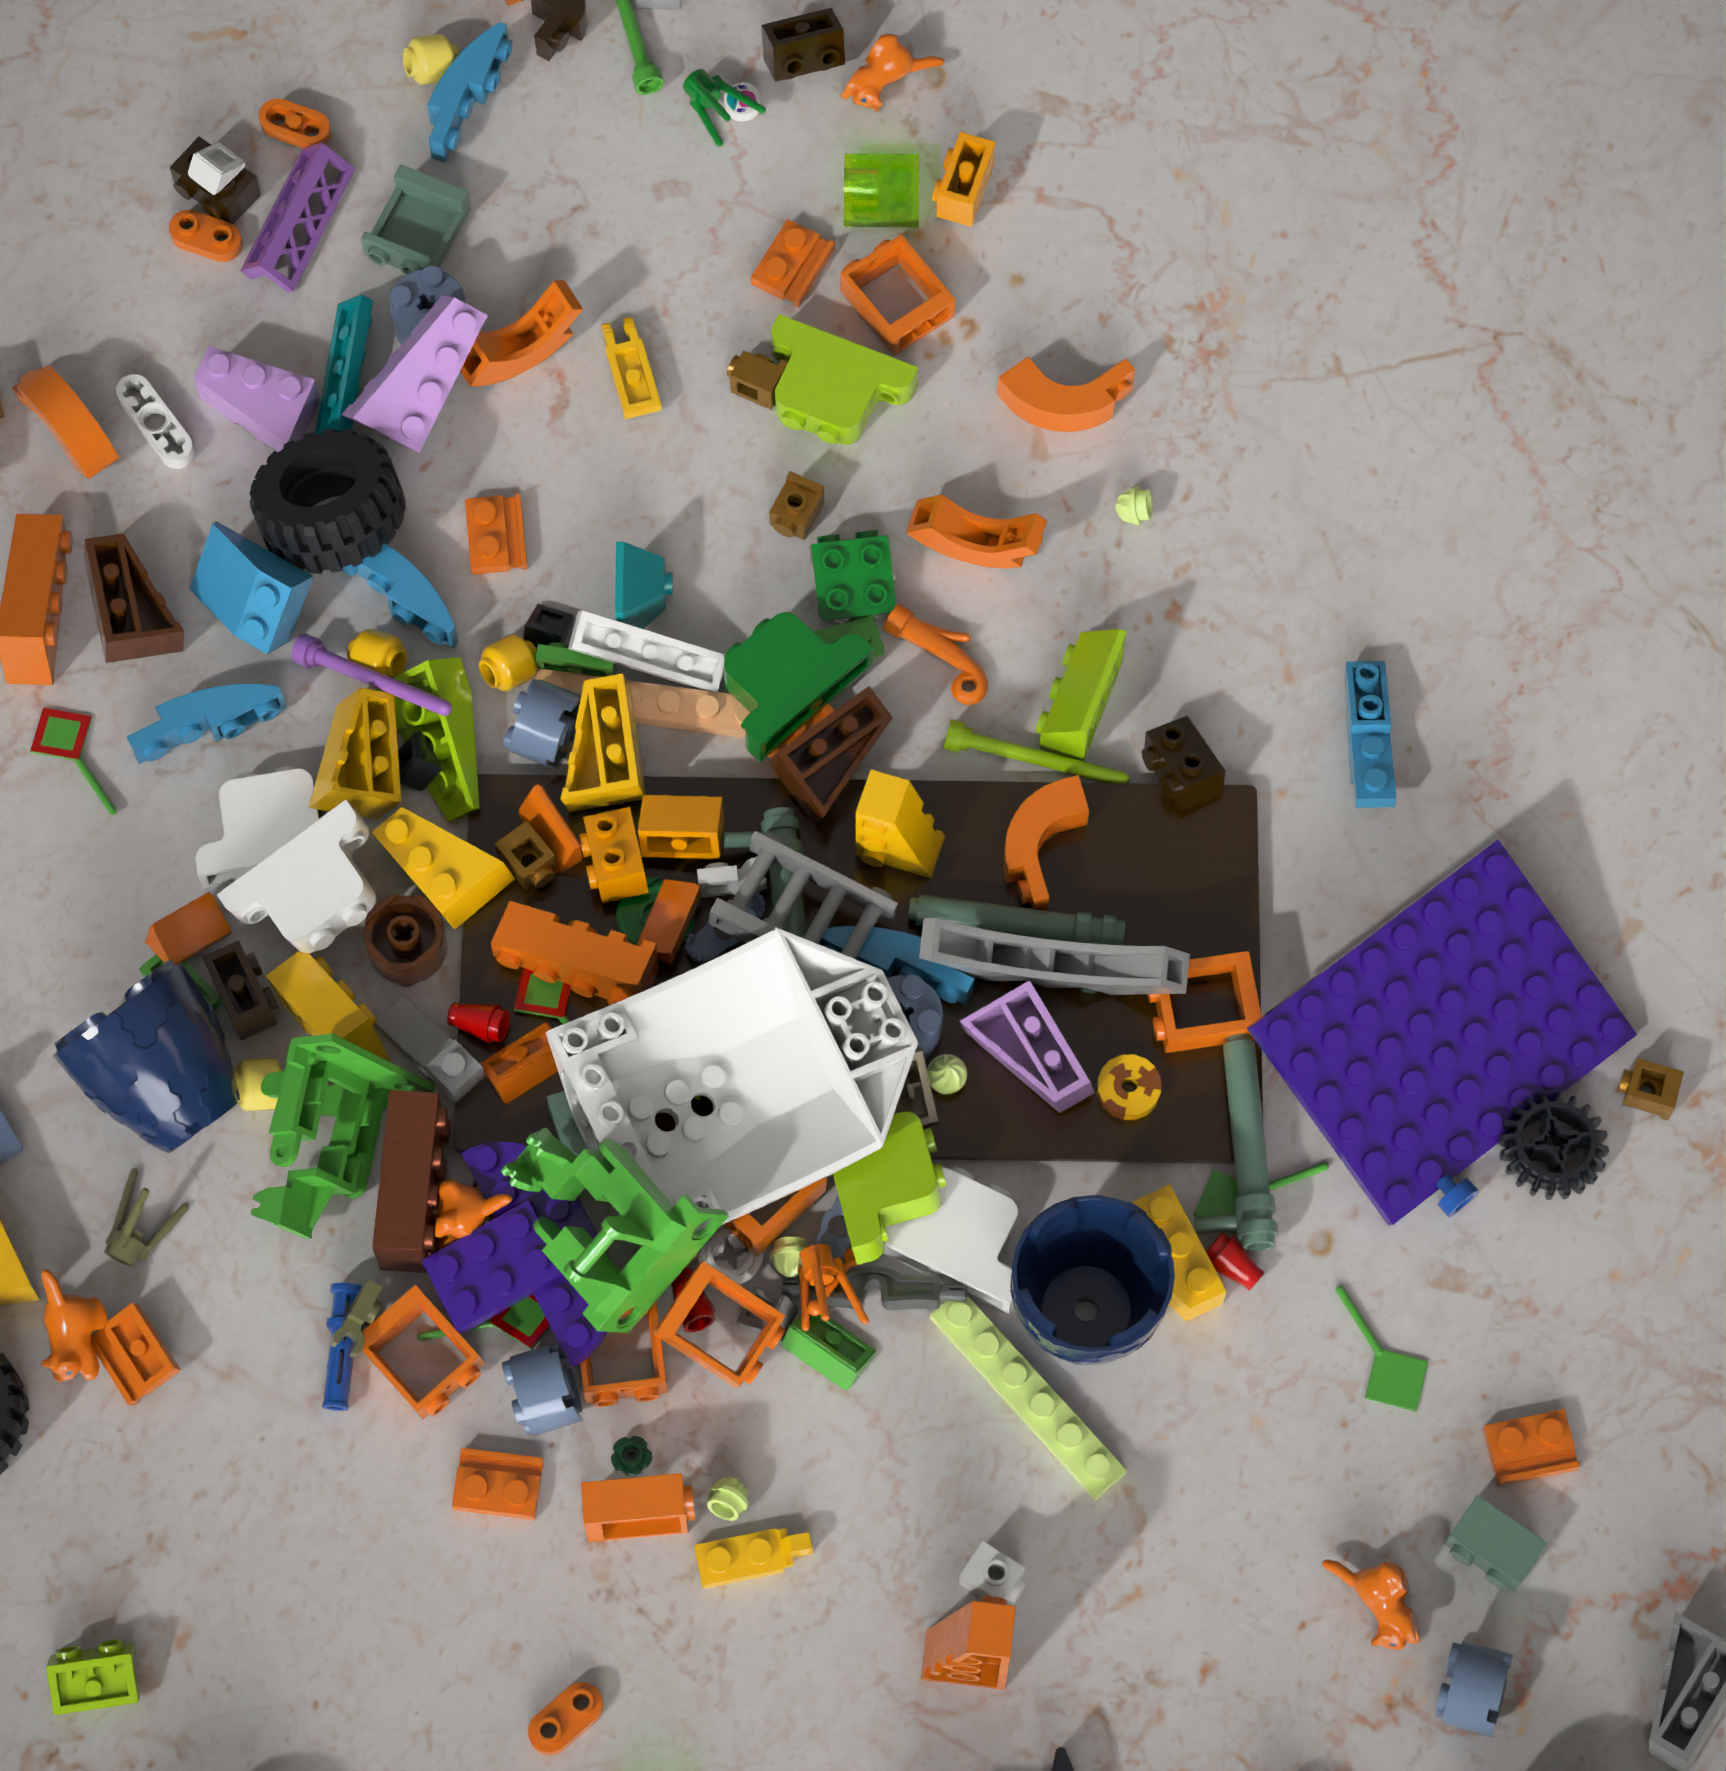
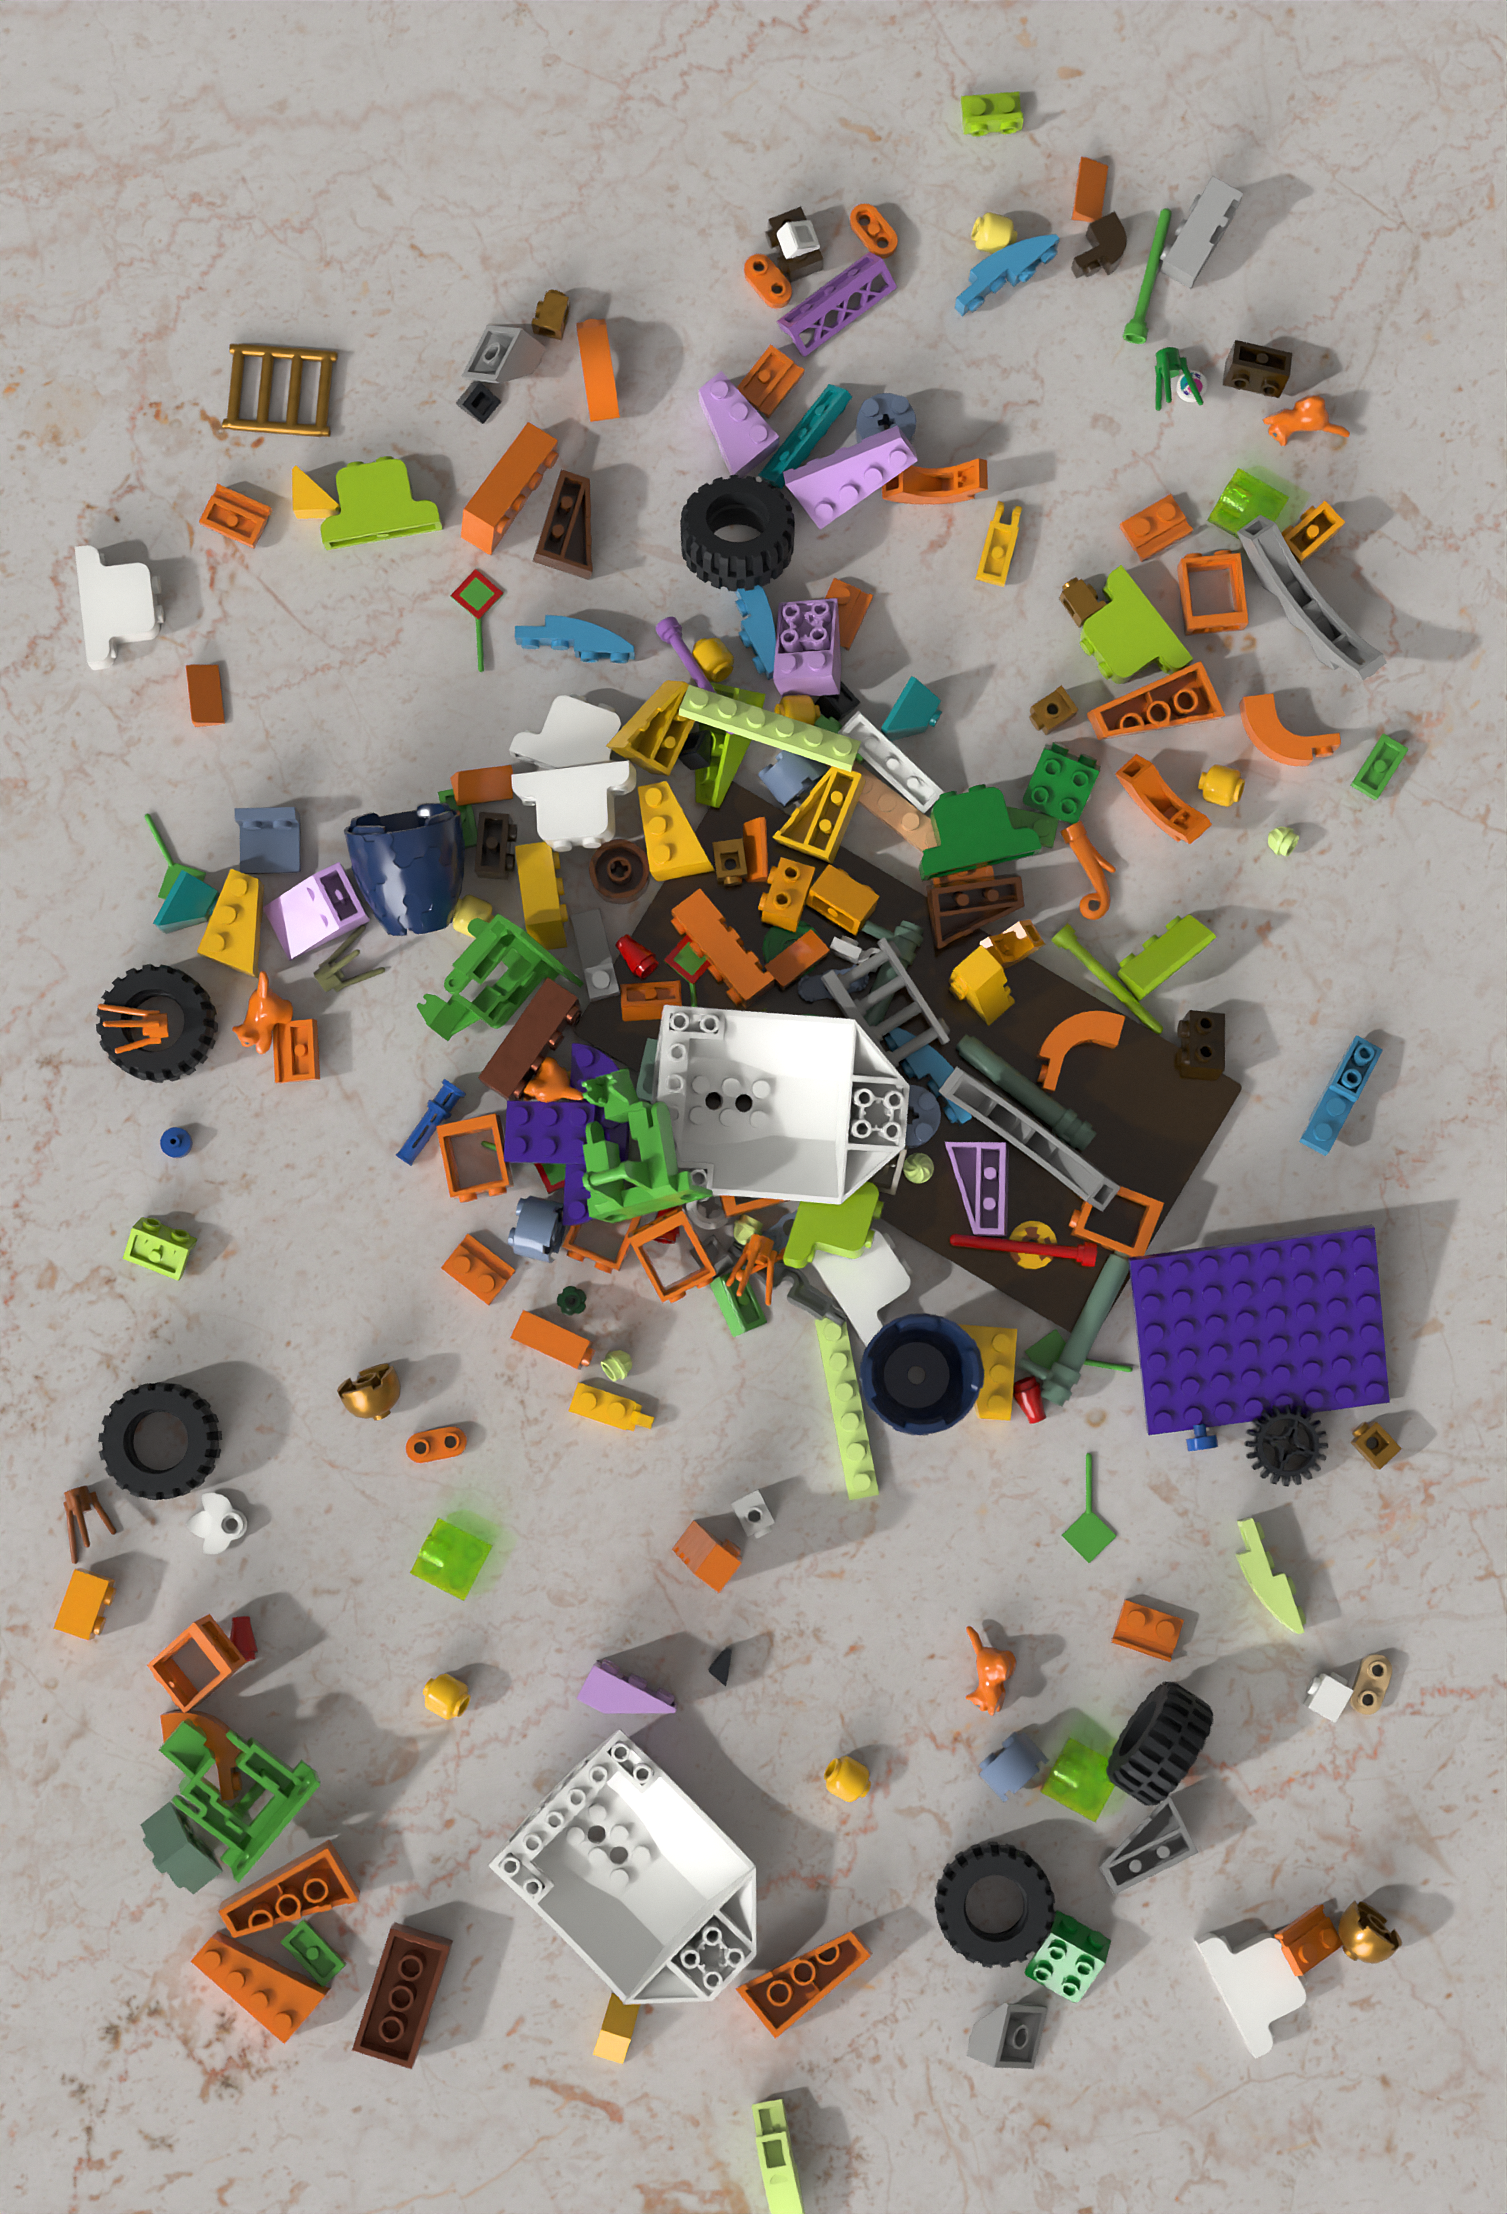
camera: 30 degrees right, 15 degrees up
(48, 1551) = (181, 1147): none -> blue tile
(69, 1179) = (316, 911): none -> lavender slope
(155, 405) = (649, 394): white beam -> none
(250, 588) = (653, 565): dark azure slope -> none
(270, 331) = (770, 381): none -> orange plate
(362, 1310) = (452, 1110): olive plate -> none
(417, 222) = (914, 354): sand green panel -> none
(452, 1697) = (371, 1393): none -> pearl gold cylinder
(480, 584) = (808, 648): none -> lavender slope
(487, 681) = (769, 728): none -> yellowish green plate
(910, 761) = (1014, 943): none -> light orange brick
(913, 434) = (1166, 703): none -> orange wedge
(958, 232) = (1303, 604): none -> light grey arch
(1031, 483) = (1221, 785): none -> yellow head
(1191, 374) = (1379, 767): none -> bright green plate
(1193, 1060) = (1083, 1253): none -> red piece
(1494, 1544) = (1083, 1680): sand green brick -> none
(1564, 1661) = (1079, 1780): none -> clear neon green plate
(1627, 1551) = (1160, 1743): none -> black tyre
(1641, 1317) = (1274, 1589): none -> yellowish green slope

